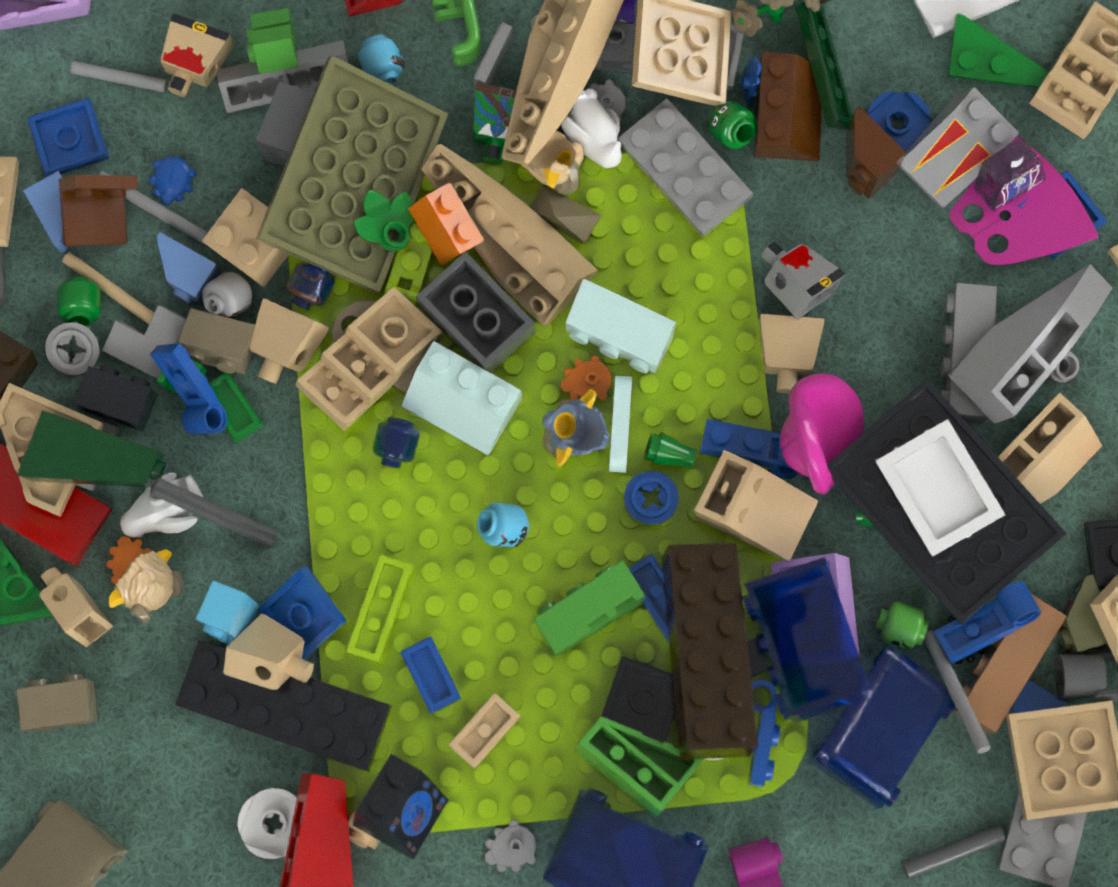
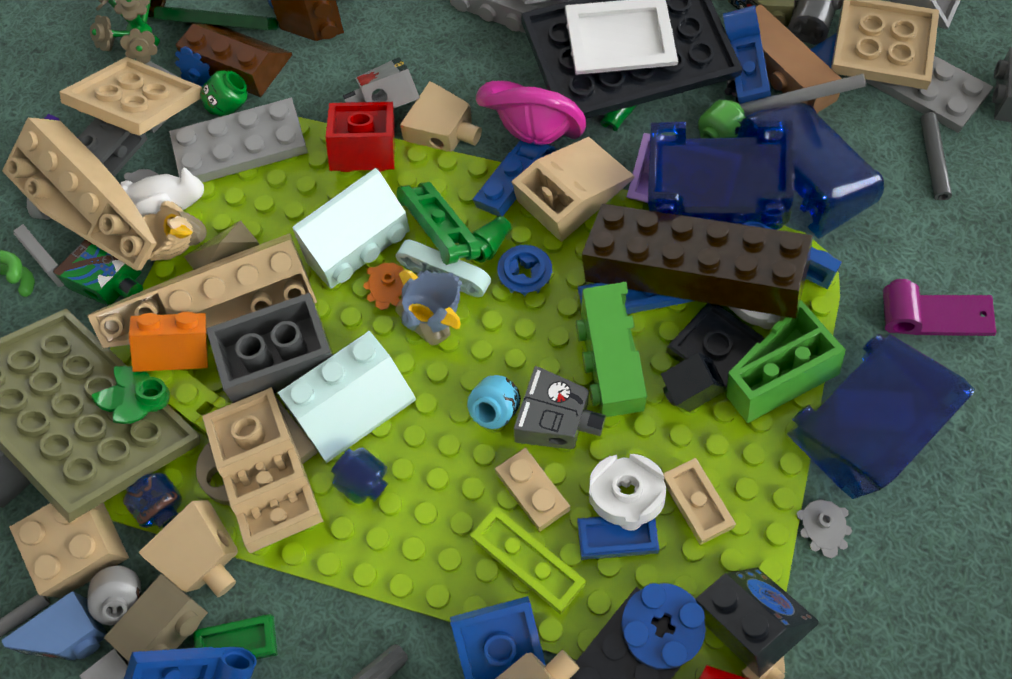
camera: 65 degrees left, 15 degrees down
(374, 751) = (685, 616): none -> blue plate
(443, 589) = (532, 489): none -> tan plate
(486, 659) = (625, 509): none -> white plate
(517, 581) = (555, 412): none -> dark grey torso
(589, 690) = (692, 382): none -> black brick
(661, 399) = (439, 222): none -> green plate
(731, 283) = (360, 136): none -> red slope

